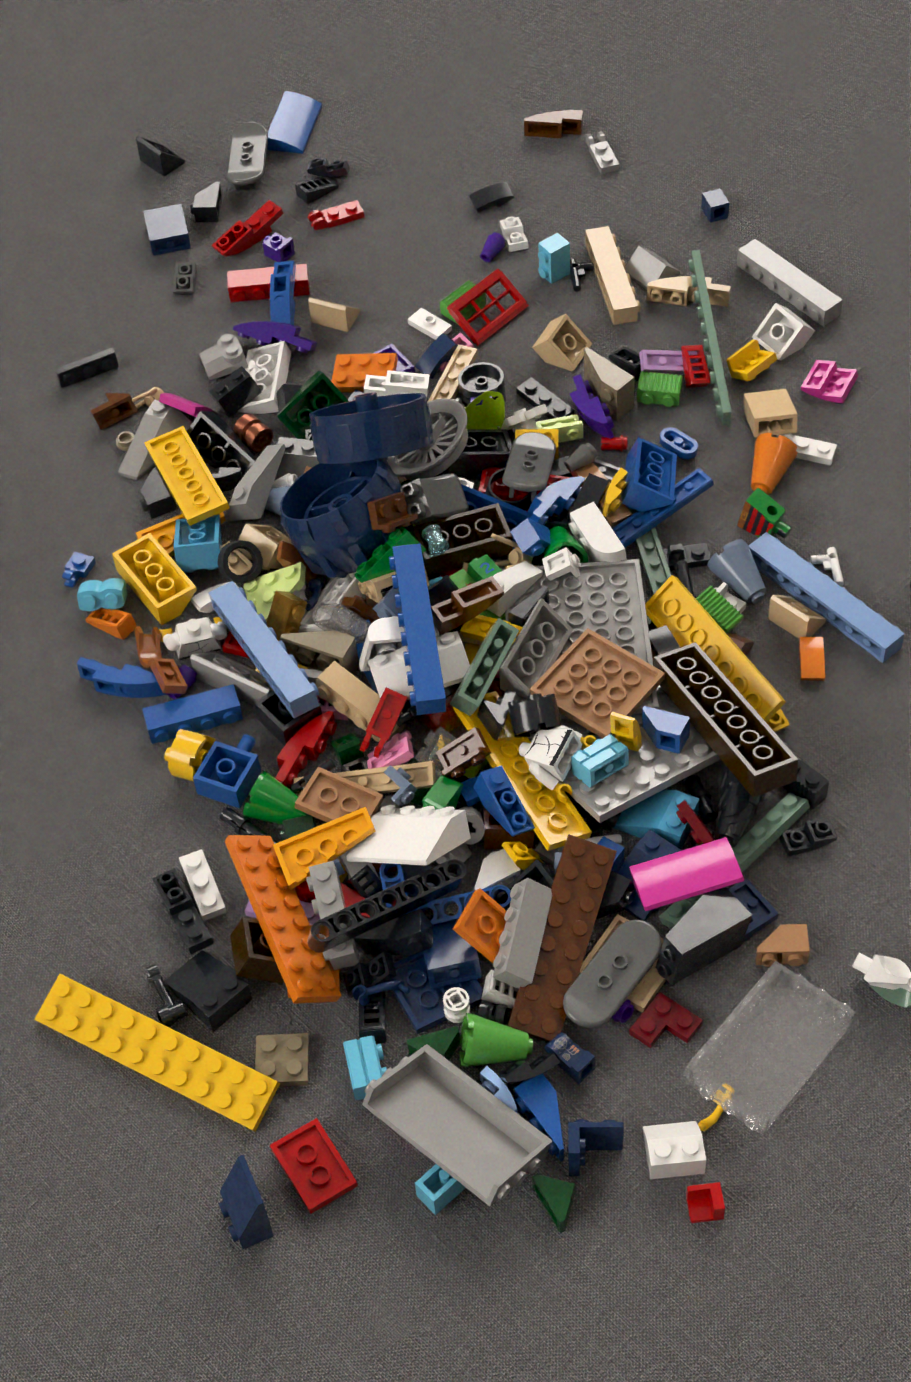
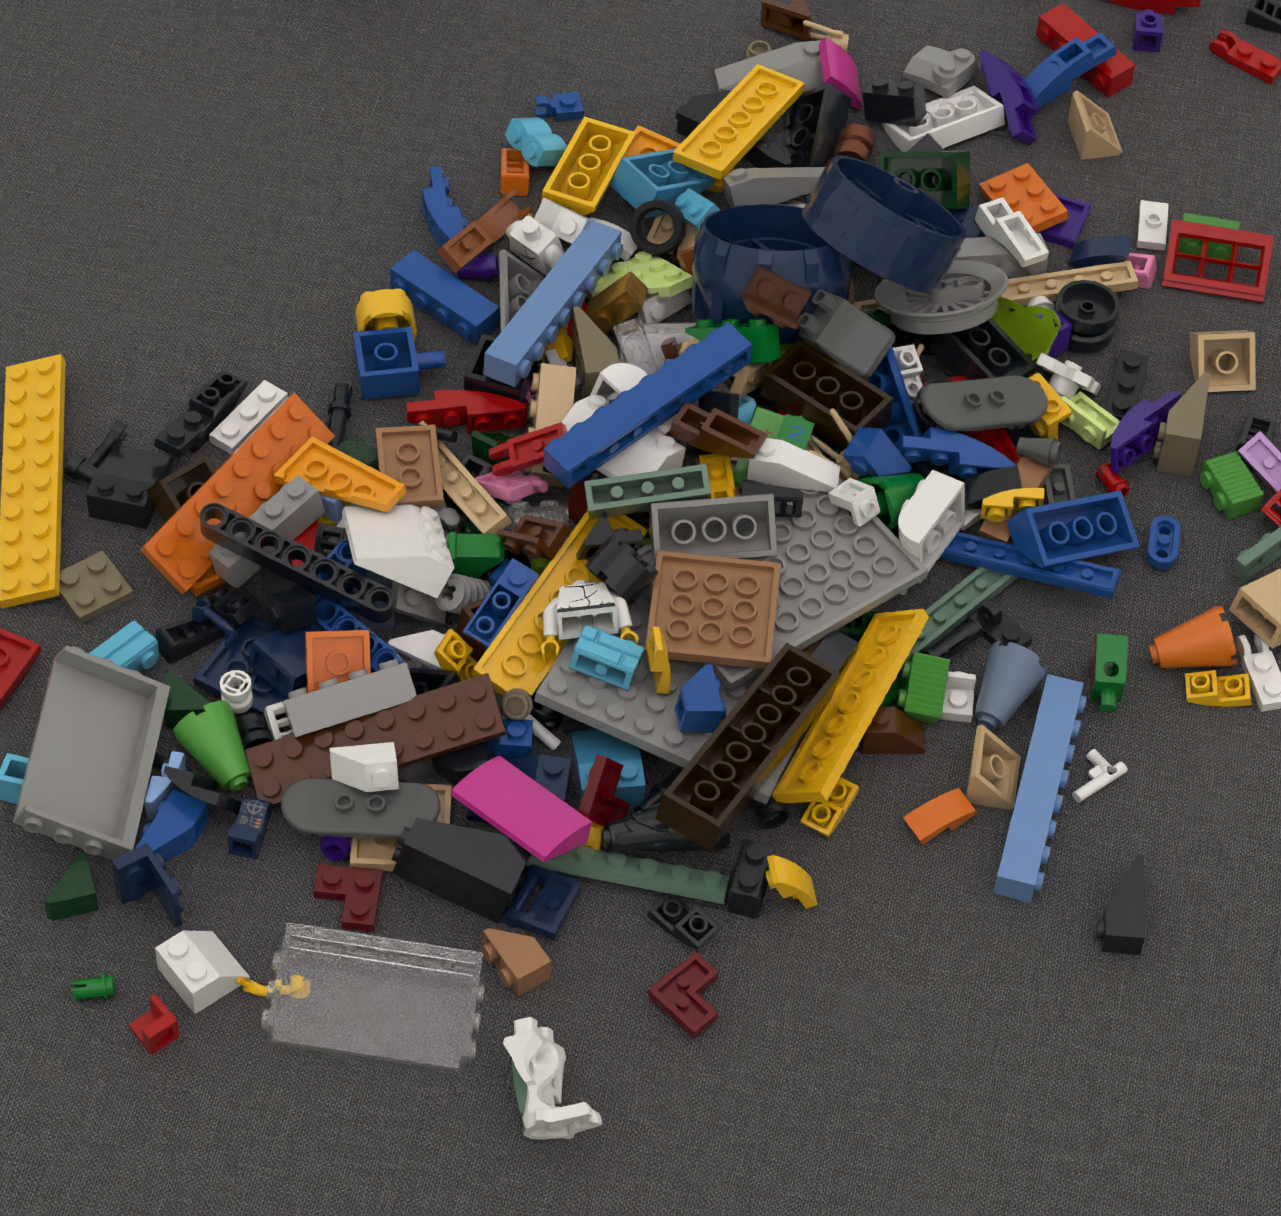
camera: 50 degrees right, 0 degrees up
(195, 608) = (561, 220): none -> white slope
(249, 530) = (695, 207): none -> medium azure plate
(271, 801) = (377, 406): green cone -> none
(316, 587) = (686, 315): dark blue piece -> none
(407, 789) = (461, 505): sand blue bracket -> none
(436, 543) = (789, 364): clear light blue bush -> none
(589, 949) = (366, 766): none -> white slope
(592, 833) = (517, 704): none -> dark tan plate
(648, 1227) = (93, 987): none -> green pin
(804, 475) = (1223, 691): none -> yellow slope
(821, 760) = (790, 880): none -> yellow slope
(867, 868) = (680, 998): none -> dark red plate

